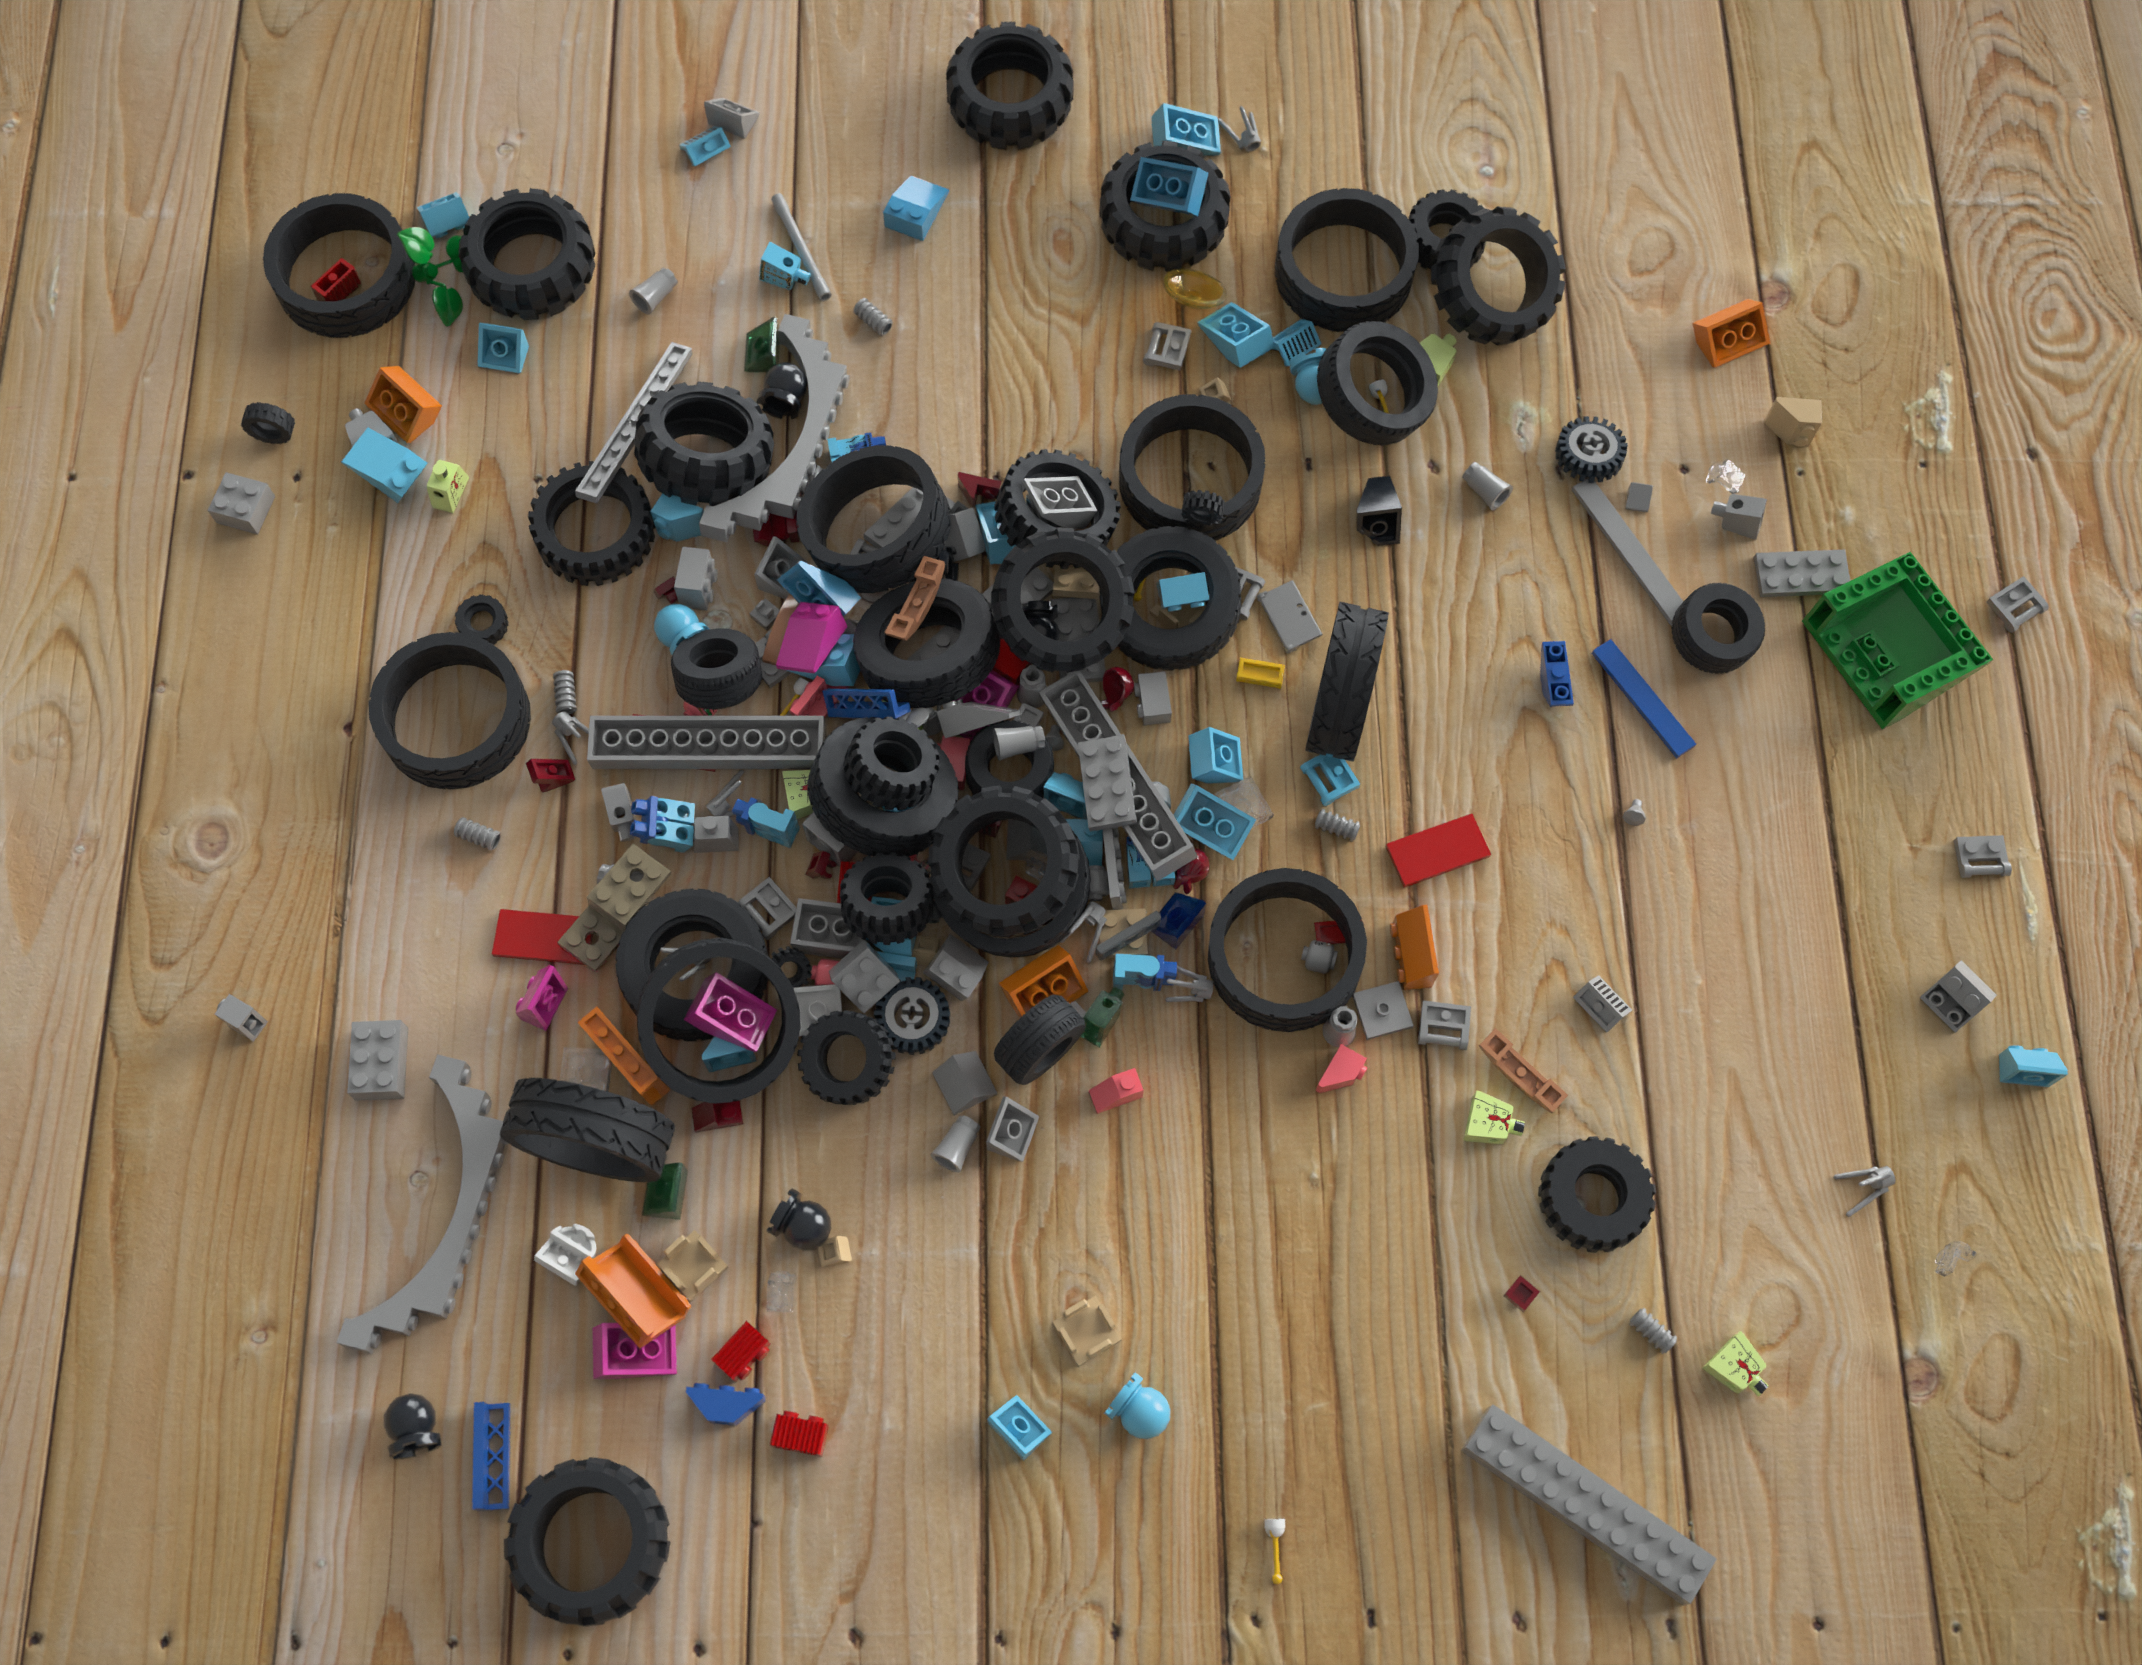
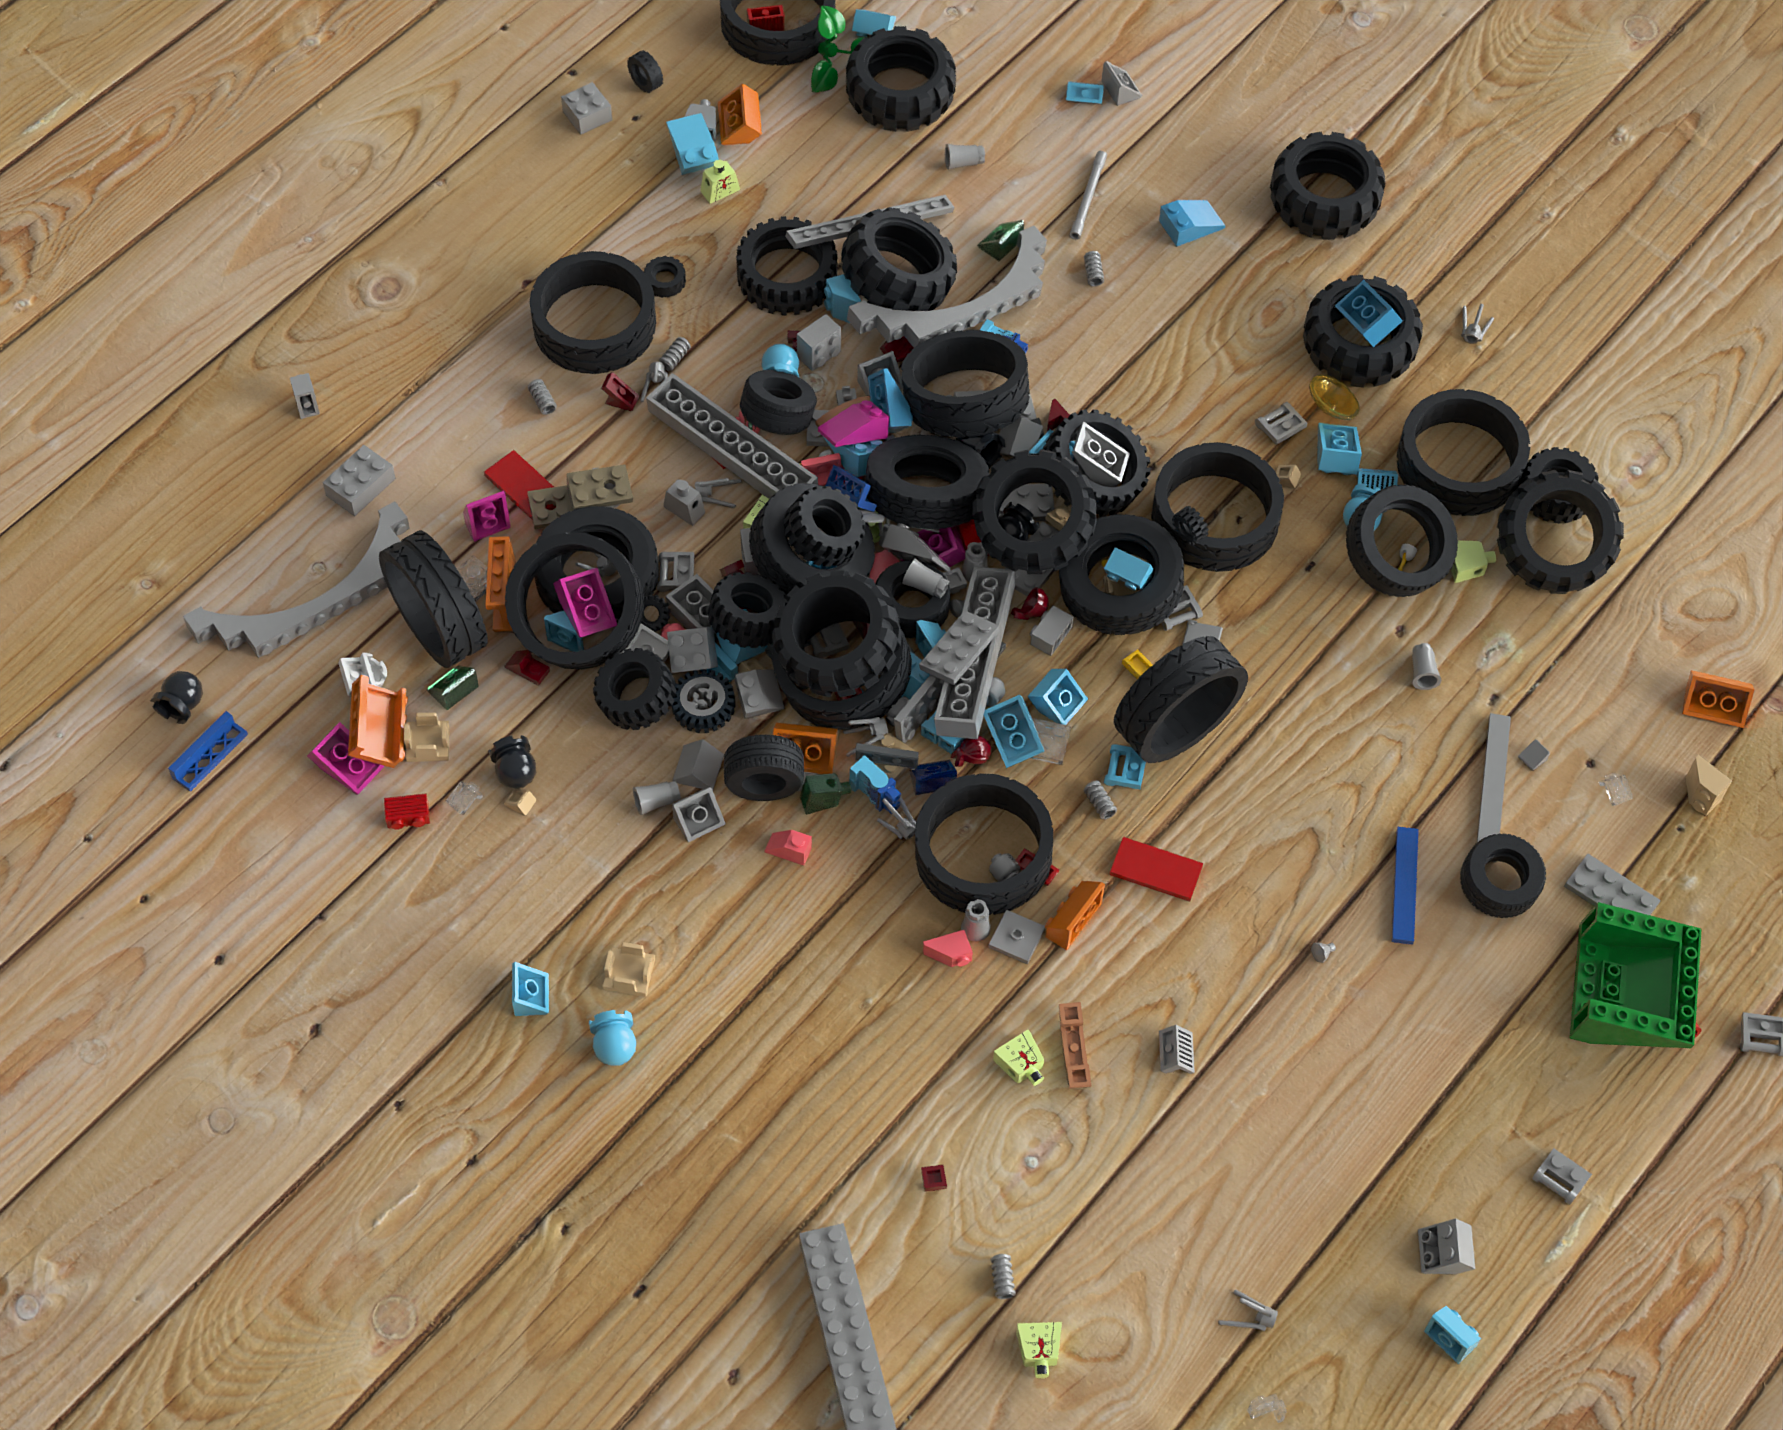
camera: 40 degrees right, 10 degrees down
(501, 348) = (832, 125): medium azure slope -> none
(531, 1520) = (203, 800): black tyre -> none
(617, 803) = (640, 444): light grey torso -> none
(664, 822) = (658, 470): medium azure hips -> none
(725, 1404) = (369, 833): blue slope -> none
(766, 822) = (724, 521): medium azure hips -> none
(781, 268) = (1059, 196): medium azure torso -> none
(783, 391) = (986, 270): black tile -> none
(799, 1434) = (394, 885): red brick -> none
(919, 600) = (943, 451): nougat slope -> none
(1186, 128) = (1432, 297): medium azure slope -> none
(1275, 1529) = (629, 1183): hinge -> none
(1379, 512) = (1325, 626): black slope -> none
(1444, 1017) = (1055, 972): light grey plate -> none
(1555, 674) = (1352, 818): blue slope -> none
(1589, 460) = (1522, 707): wheel -> none
(1617, 1166) = (1055, 1129): black tyre -> none
(1741, 514) = (1600, 819): light grey torso -> none

